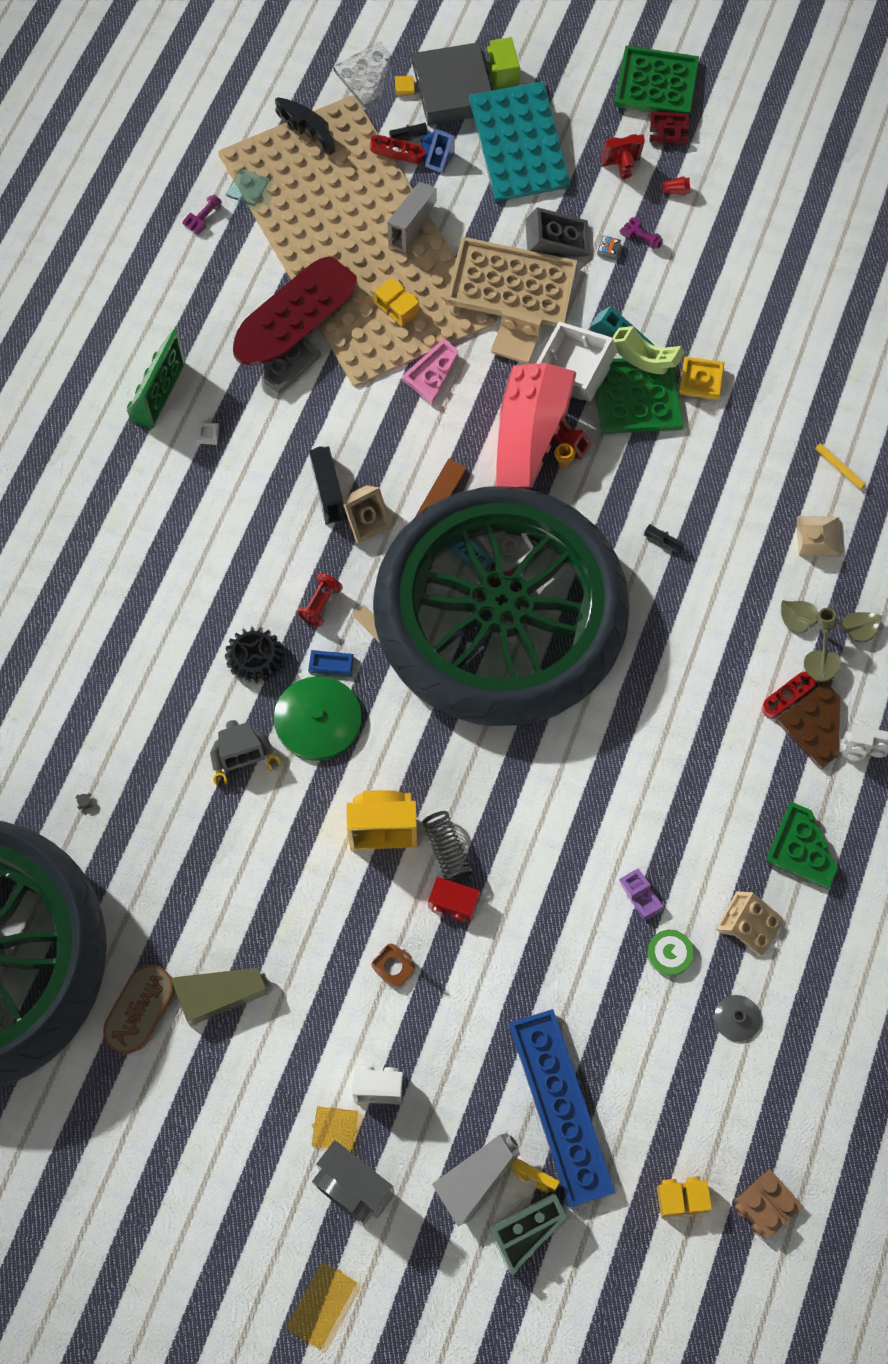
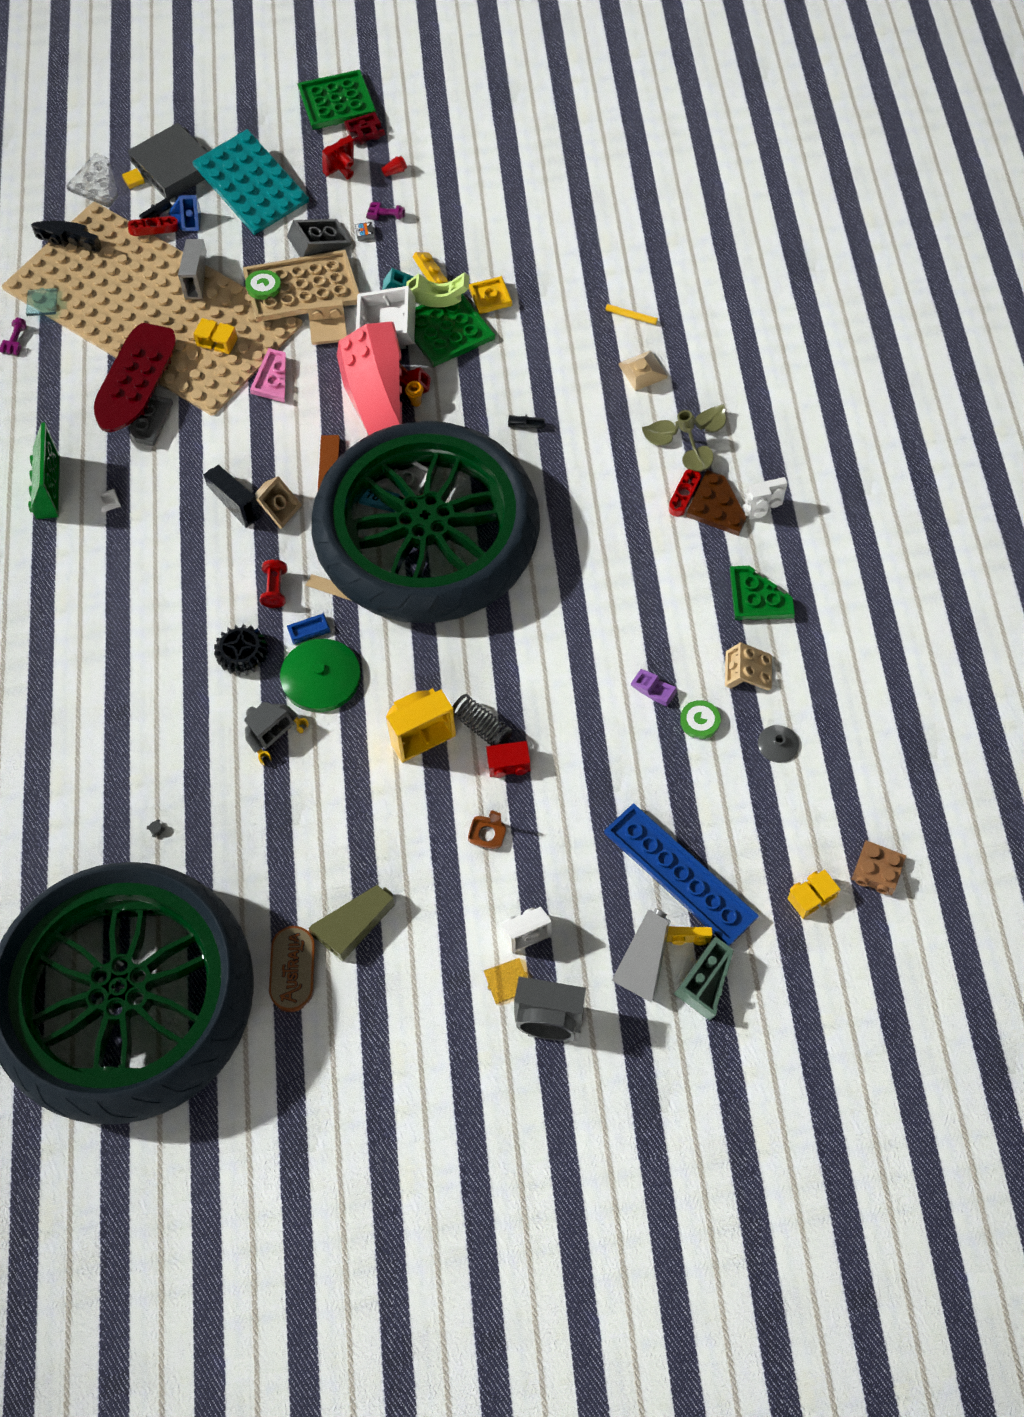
camera: 25 degrees left, 5 degrees down
(321, 1305) = (572, 1123): clear yellow piece -> none
(471, 266) = (263, 284): none -> bright green tile
(503, 63) = (207, 128): lime container -> none
(654, 322) = (429, 267): none -> yellow plate

